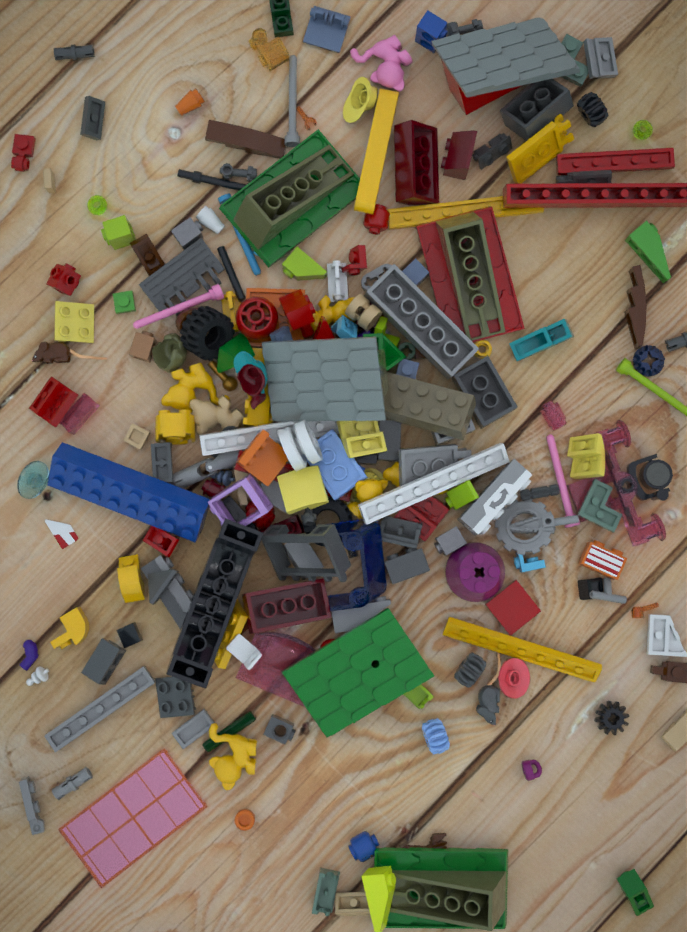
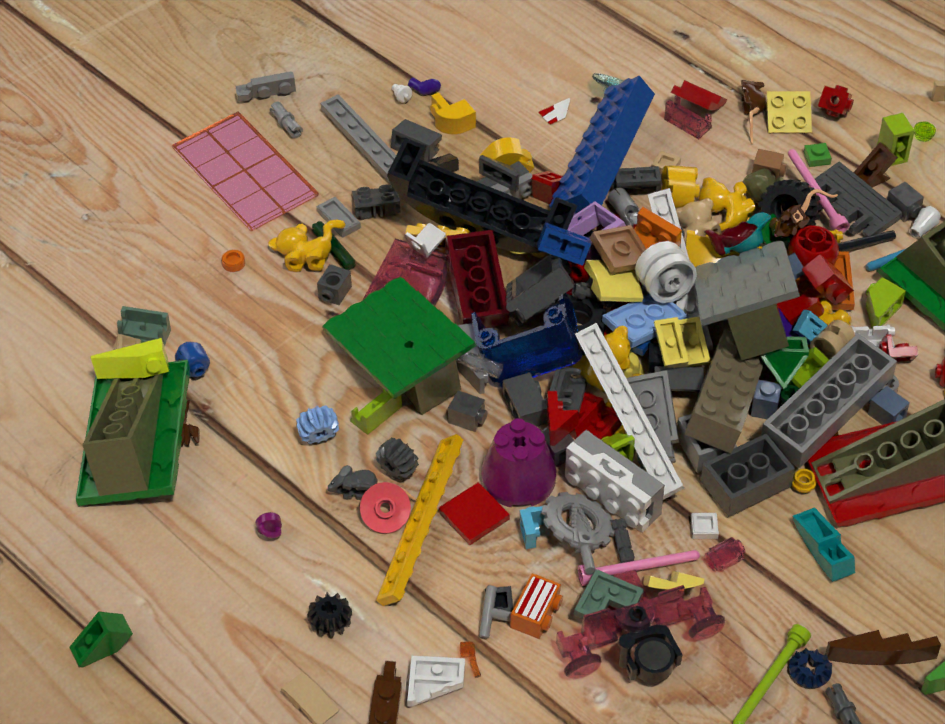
camera: 90 degrees right, 35 degrees down
(233, 332) = (793, 217): none -> reddish brown animal
(275, 531) = (564, 244): none -> blue brick
(276, 482) = (618, 247): none -> medium nougat plate
(382, 601) = (480, 364): none -> clear pin
(417, 613) = (467, 411): none -> flat silver brick
(446, 540) = (560, 421): none -> red slope
(522, 428) = (704, 526): none -> white tile

